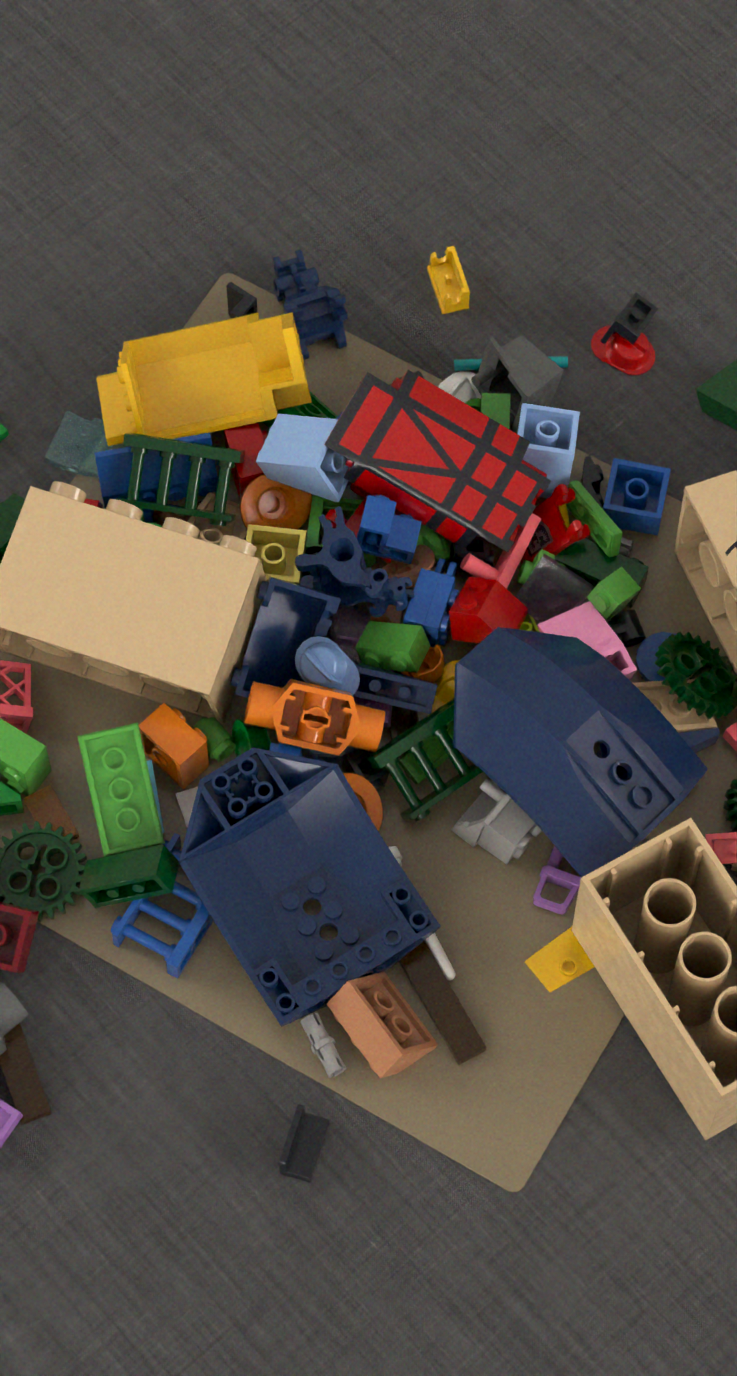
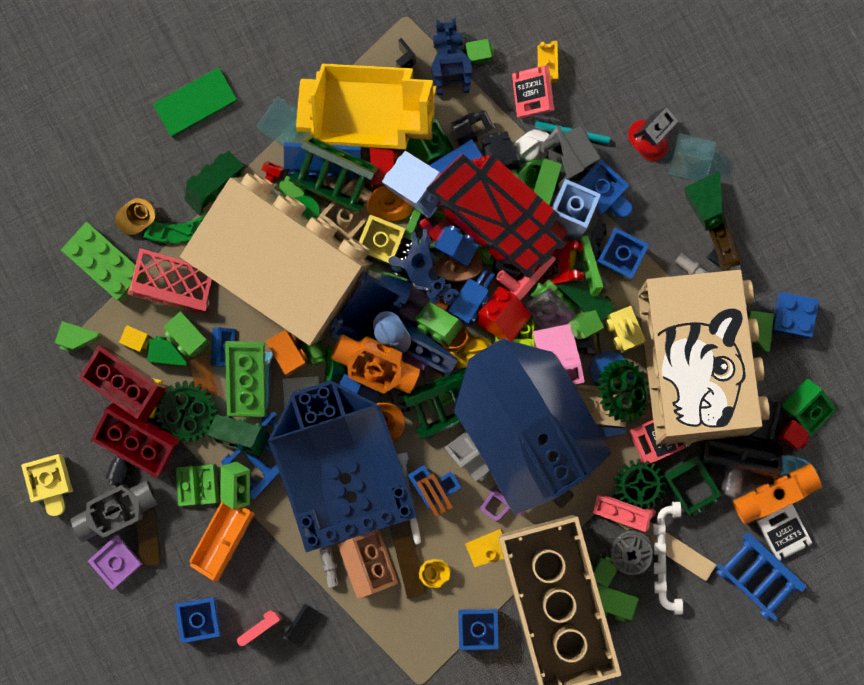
camera: 20 degrees right, 20 degrees up
(68, 770) = (219, 337): none -> blue slope
(81, 977) = (197, 485): none -> bright green slope
(134, 1174) = (198, 619): none -> blue brick
(140, 1045) = (220, 540): none -> orange container
(142, 952) = (235, 485): none -> bright green brick
(237, 1159) = (270, 619): none -> coral container
(346, 385) = (464, 131): none -> black piece
(350, 284) = (479, 51): none -> bright green brick
(434, 314) = (531, 87): none -> coral container
(439, 866) = (426, 480): none -> dark orange tile
(448, 887) = (447, 482): none -> blue brick
(491, 1009) = (434, 573): none -> yellow hair
(584, 1073) = (478, 629): none -> blue brick
(595, 418) = (611, 187): none -> blue brick
(673, 593) = (625, 329): none -> light yellow brick
(692, 351) = (692, 157): none -> clear light blue slope

